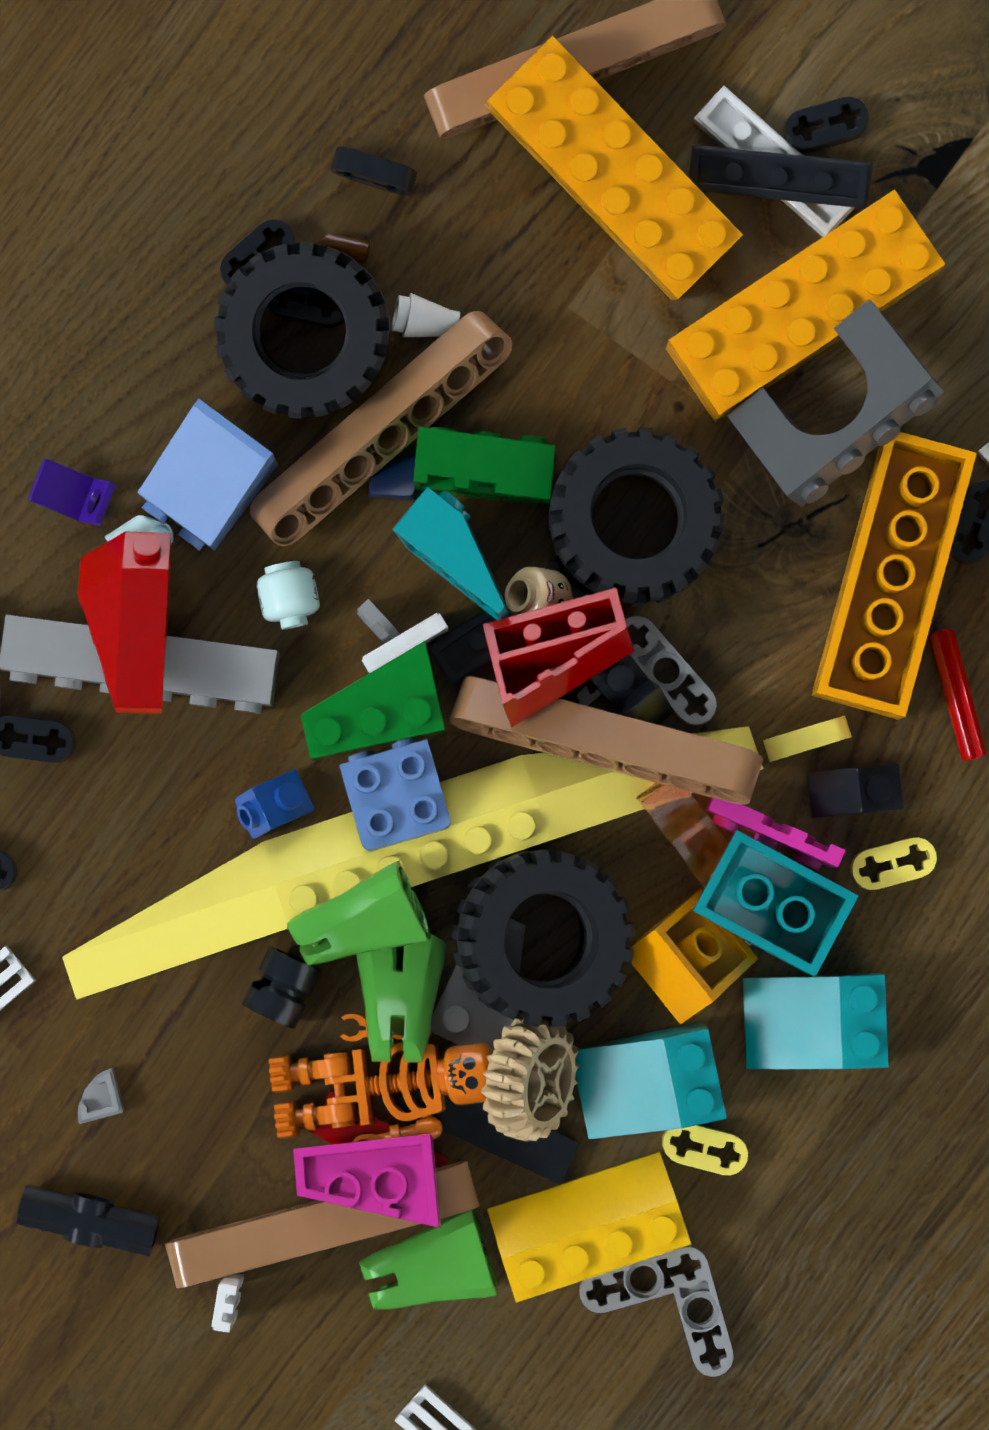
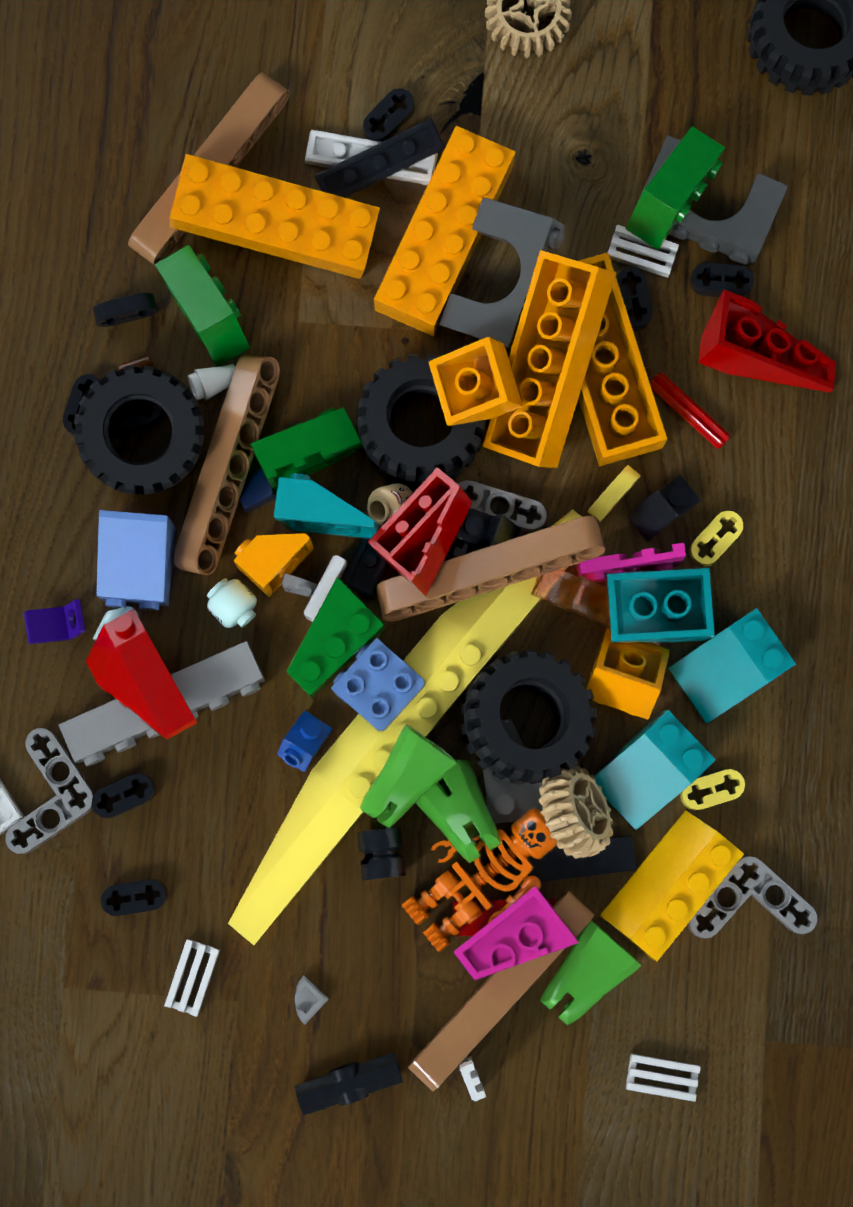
camera: 30 degrees left, 5 degrees down
(362, 572) = (270, 557): none -> light orange slope
(468, 221) = (203, 304): none -> green wedge
(721, 516) = (475, 382): none -> light orange slope
(825, 539) = (551, 357): none -> light orange brick

